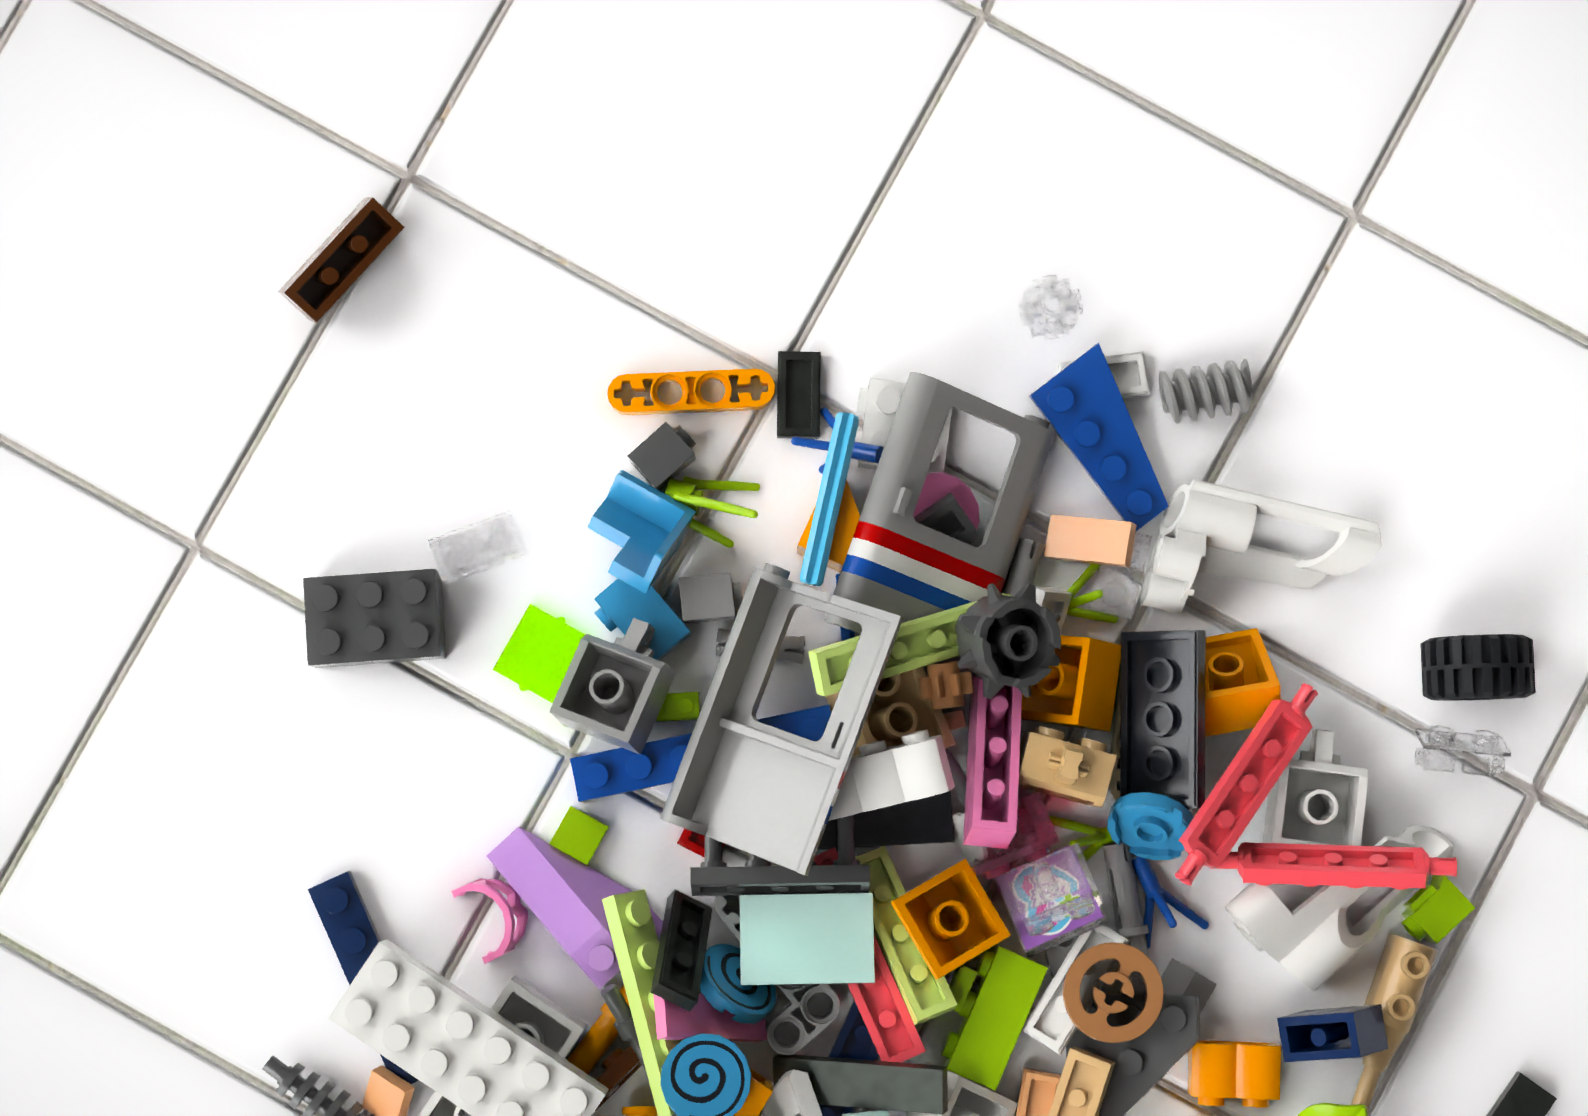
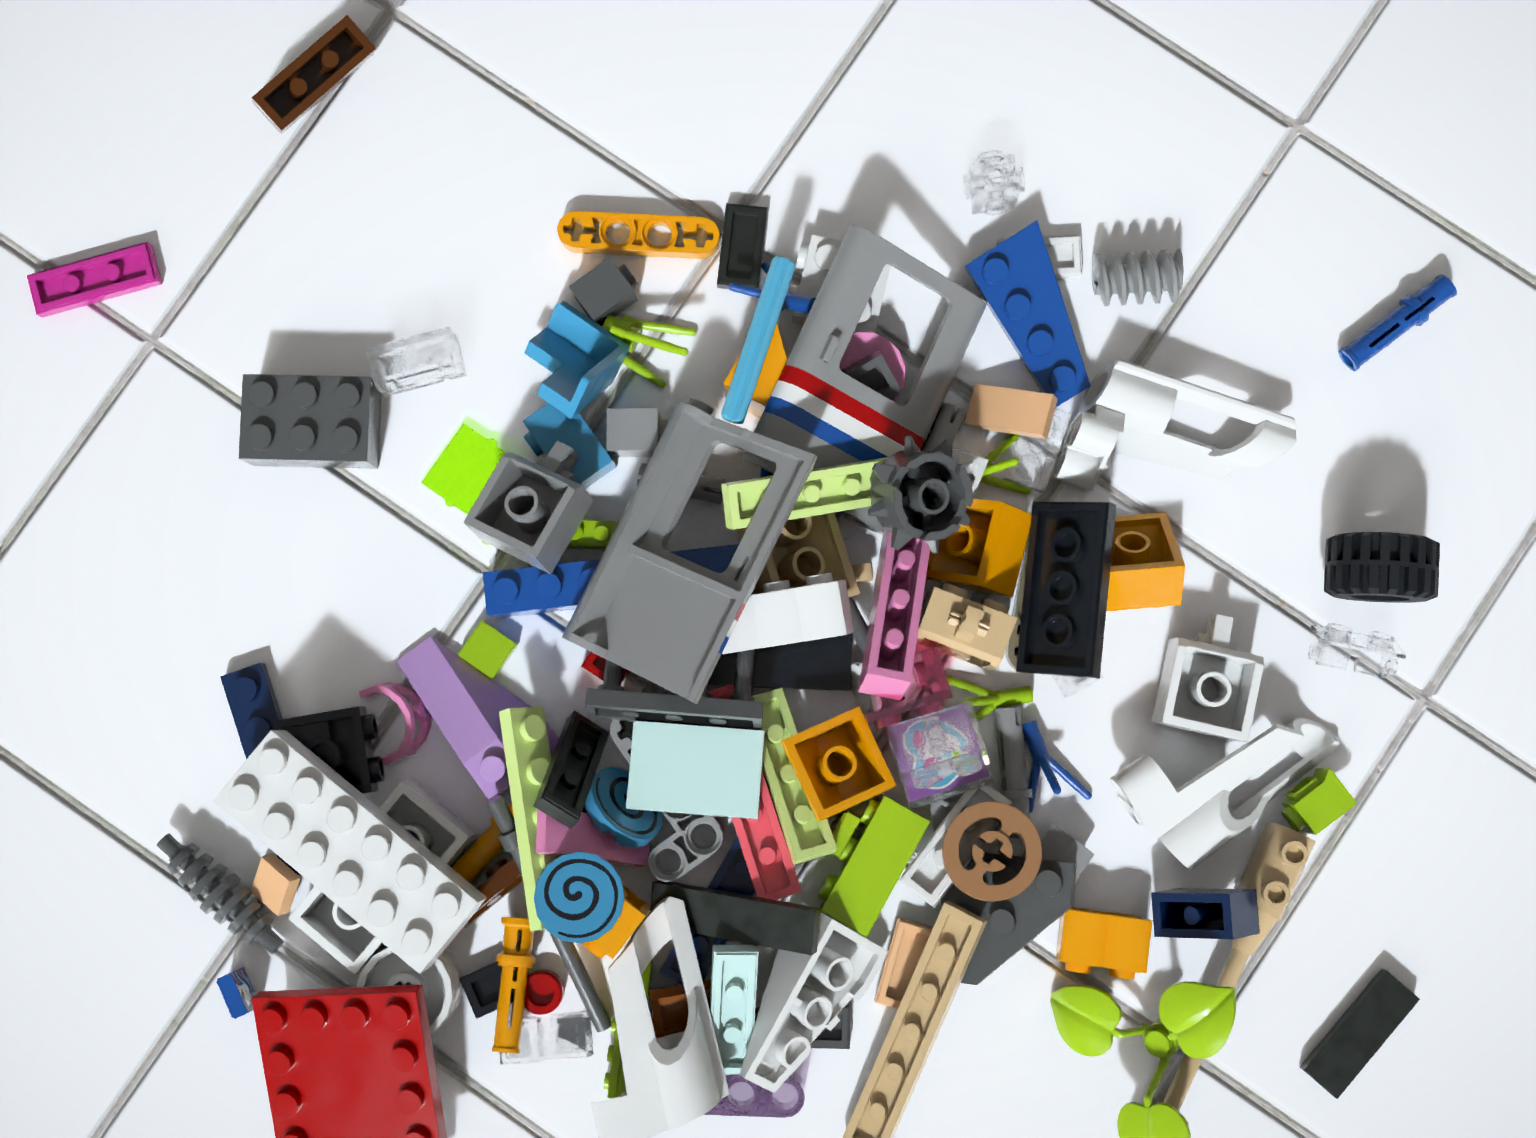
camera: 15 degrees right, 0 degrees up
(131, 490) = (94, 279): none -> dark pink tile
(441, 944) = (342, 742): none -> black plate
(945, 685) = (855, 533): medium nougat gear -> none
(1149, 825) = (1045, 691): dark azure tile -> none
(1245, 784) = (1142, 658): coral plate -> none
(1336, 865) = (1223, 747): coral plate -> none
(1488, 399) = (1409, 313): none -> blue pin

